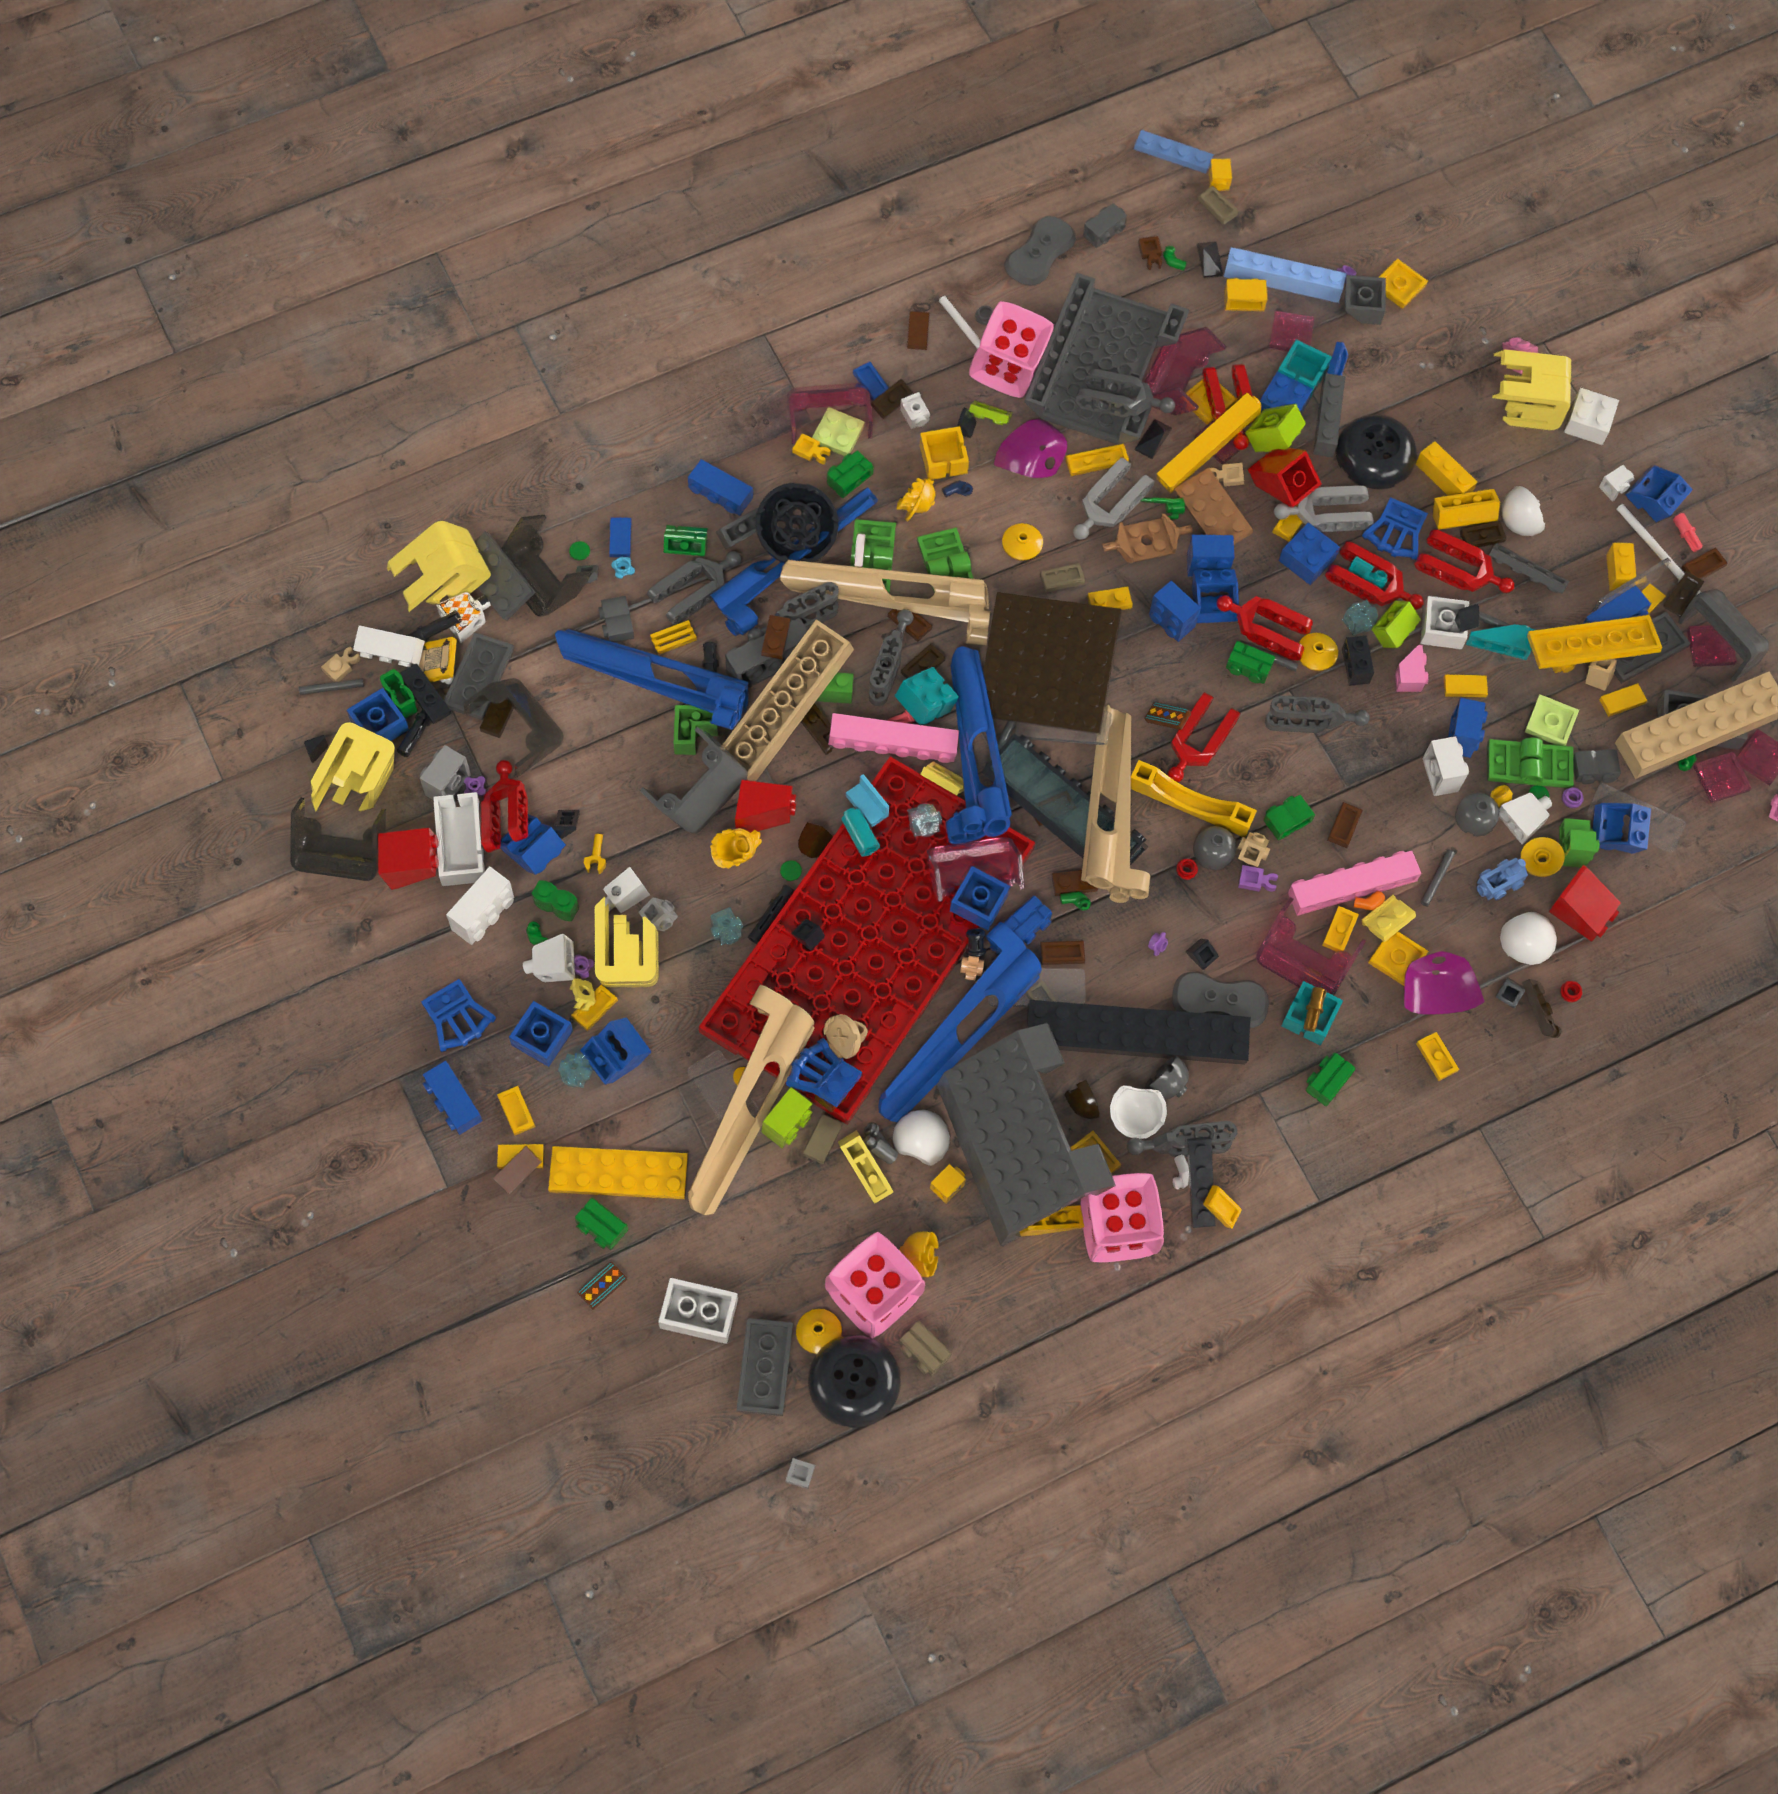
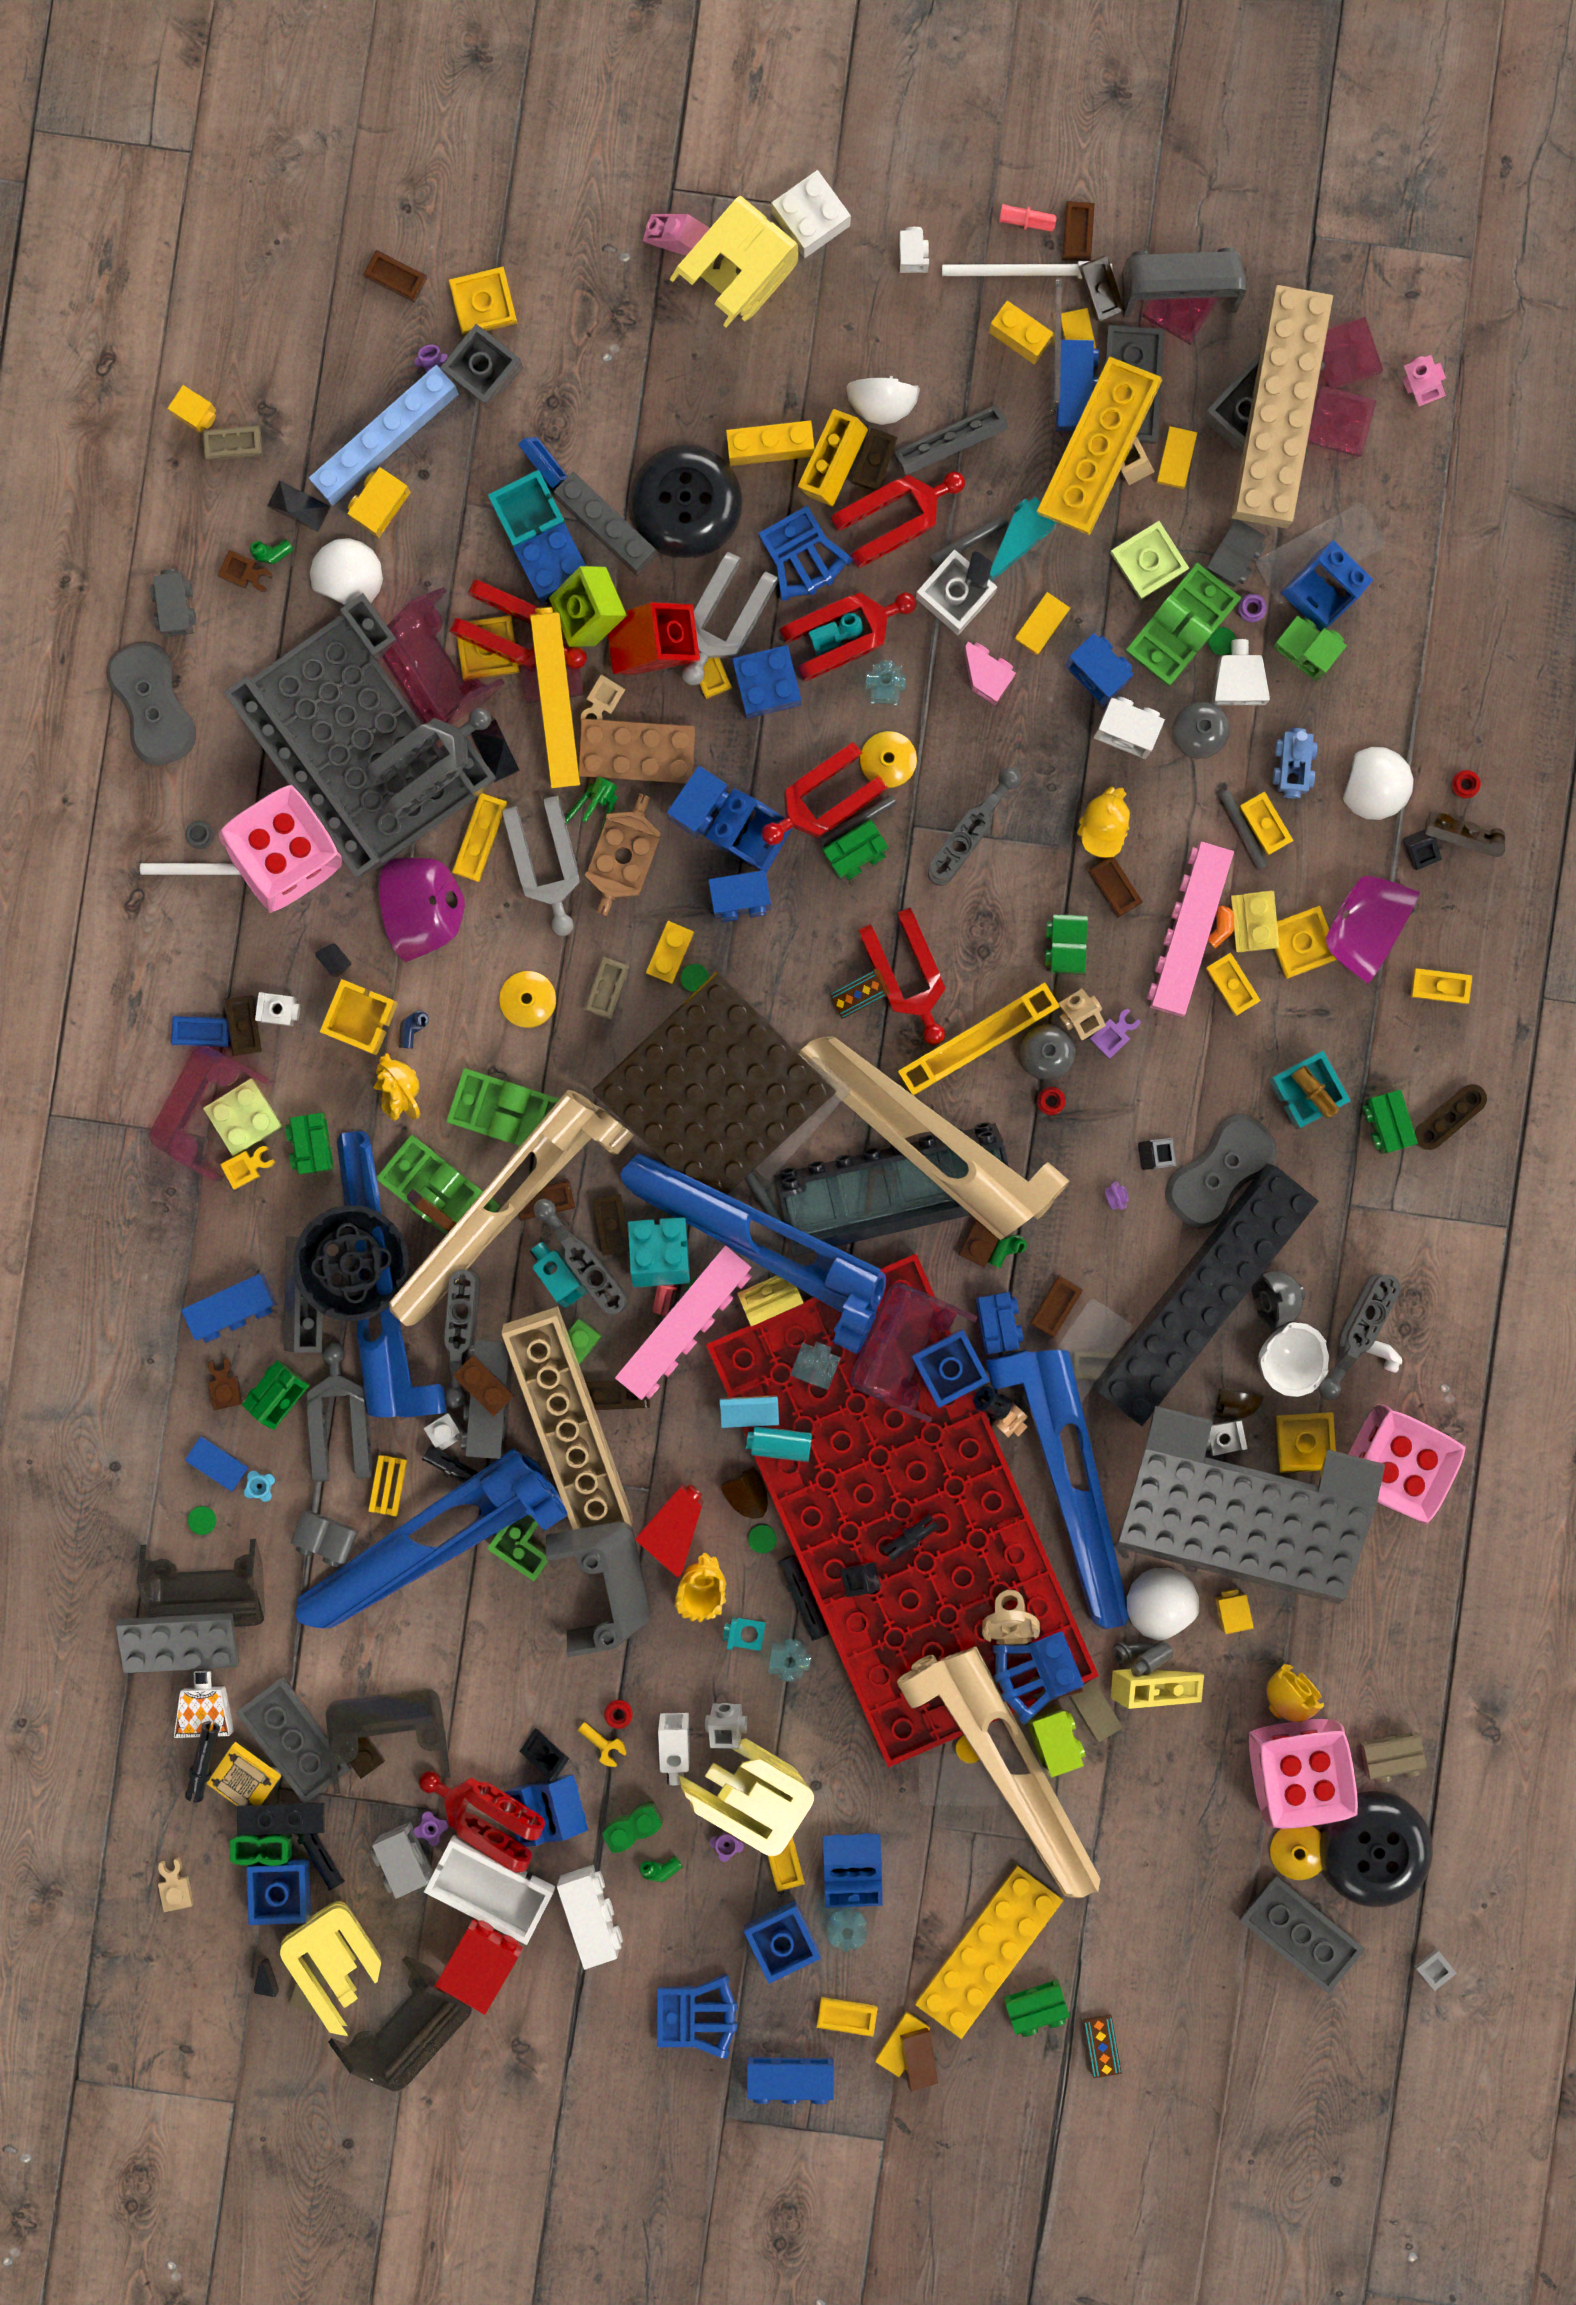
camera: 50 degrees left, 20 degrees up
(325, 687) = (195, 1913): dark grey piece -> none
(388, 646) = (191, 1823): white brick -> none
(441, 554) = (134, 1701): light yellow piece -> none
(552, 960) = (704, 1875): white torso -> none
(578, 987) = (771, 1875): light yellow piece -> none
(592, 568) = (240, 1534): dark grey plate -> none
(618, 847) = (614, 1722): none -> red plate
(670, 514) = (224, 1391): none -> reddish brown plate
(698, 1310) = (1200, 1968): white brick -> none
(722, 885) = (732, 1633): none -> teal bracket
(727, 641) = (444, 1431): none -> white brick
(856, 945) = (910, 1537): none -> black pin
(869, 645) = (564, 1283): none -> teal torso
(918, 330) = (167, 928): reddish brown tile -> none
(984, 410) = (337, 921): lime plate -> none
(1065, 1106) = (1236, 1437): none -> white brick
(1173, 151) = (119, 440): medium blue plate -> none
(1196, 297) = (346, 570): none -> white cylinder
(1200, 1180) = (1416, 1348): black plate -> none
(1222, 1206) = (1453, 1342): yellow tile -> none
(1289, 328) = (465, 484): clear pink plate -> none
(1299, 963) = (1244, 1053): clear pink windscreen -> none
(1357, 660) = (934, 726): black brick -> none
(1371, 1115) = (1461, 1112): none -> dark brown plate
(1376, 232) = (395, 276): none -> reddish brown tile
(1378, 792) = (1105, 823): none -> yellow hair
(1396, 624) = (921, 650): lime brick -> none
(1452, 887) = (1265, 823): none -> yellow plate
(1501, 795) = (1199, 687): yellow tile -> none
(1543, 848) = (1284, 698): yellow dish -> none
(1586, 905) = (1386, 695): red slope -> none
(1647, 494) = (948, 229): blue piece -> none

